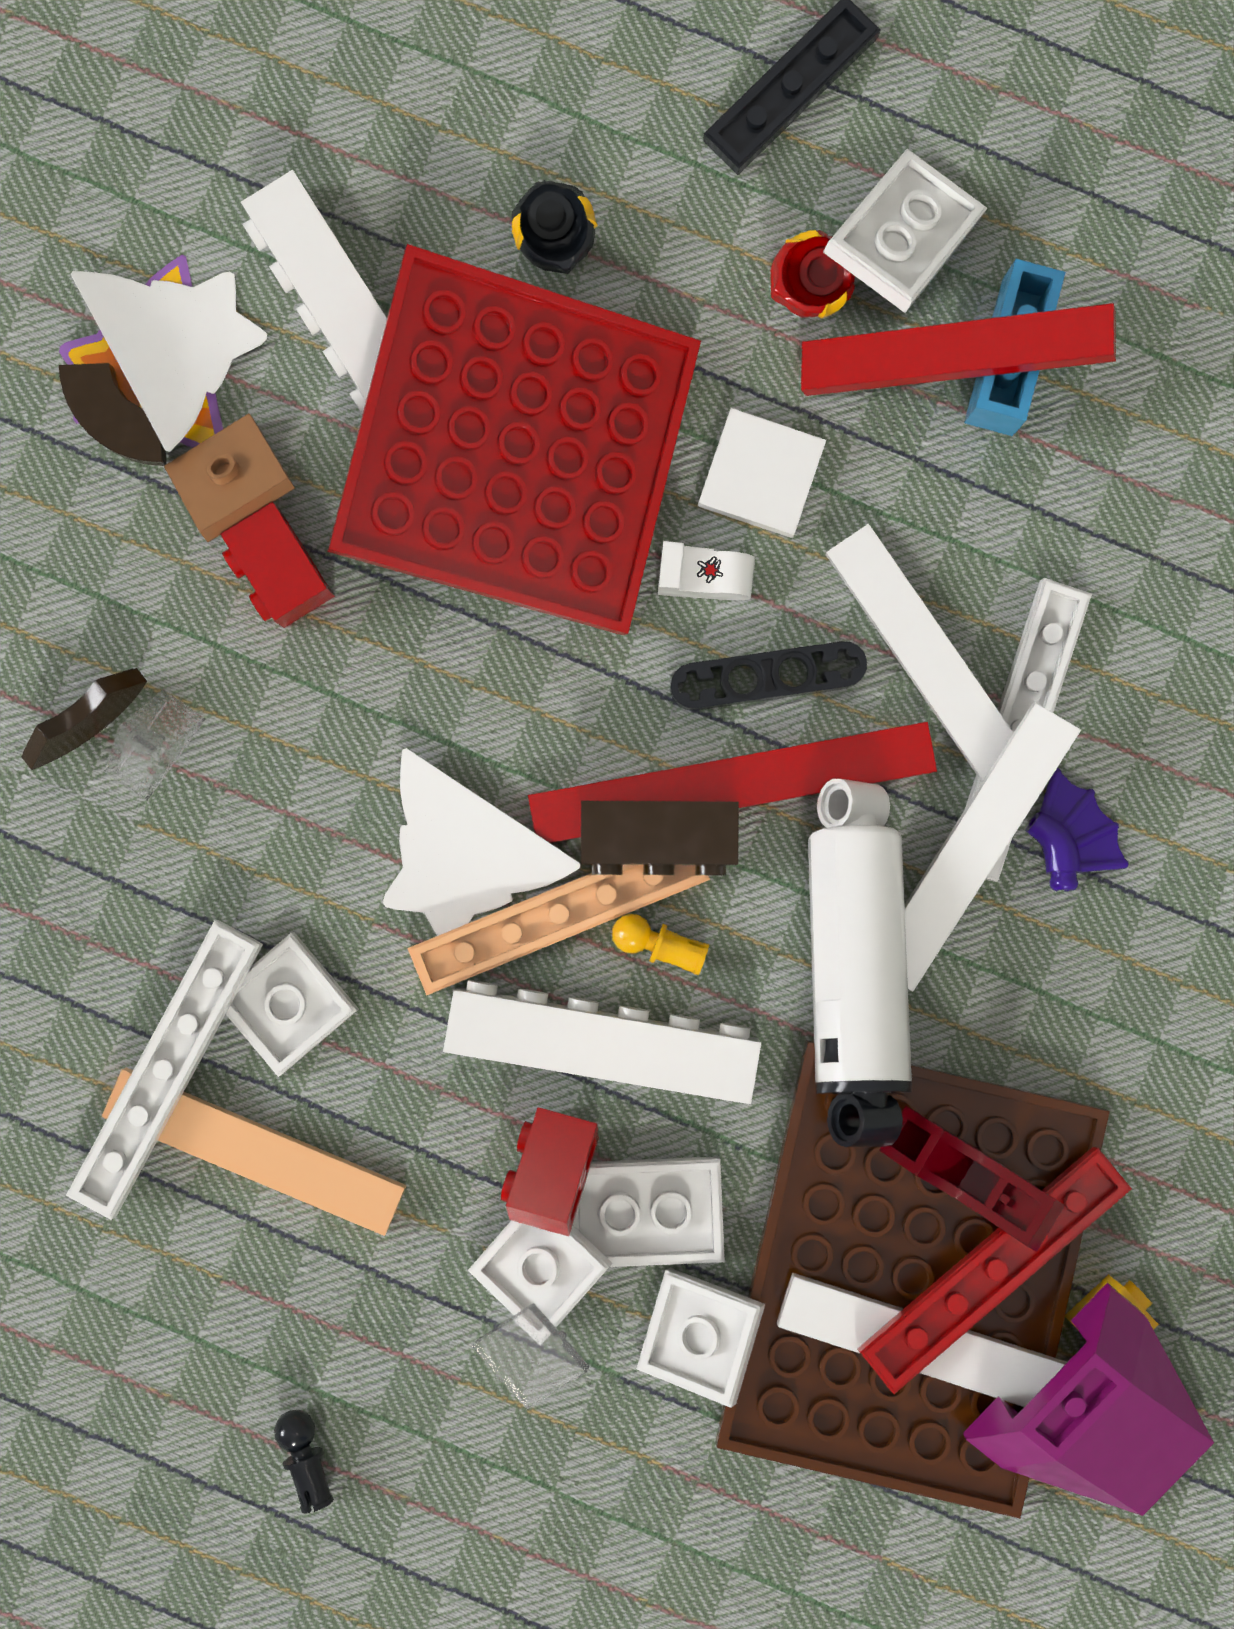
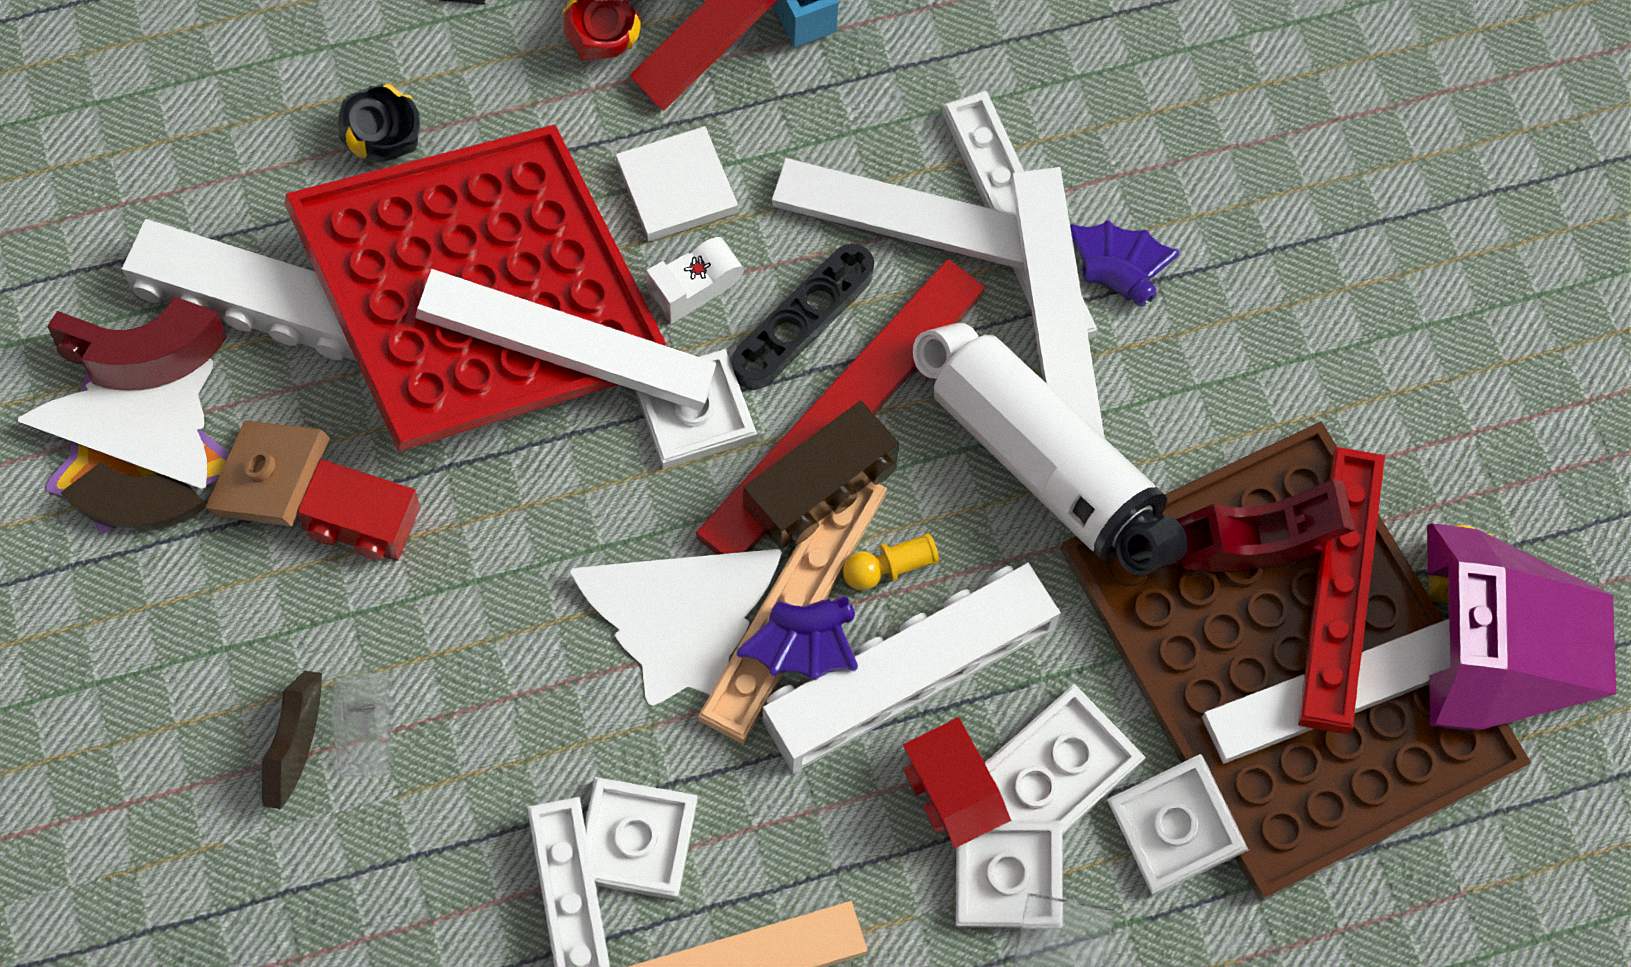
camera: 45 degrees left, 20 degrees down
(222, 300) = (141, 356): none -> dark red arch
(531, 960) = (804, 639): none -> dark purple arm
(542, 553) = (565, 340): none -> white tile
(614, 686) = (690, 434): none -> white tile

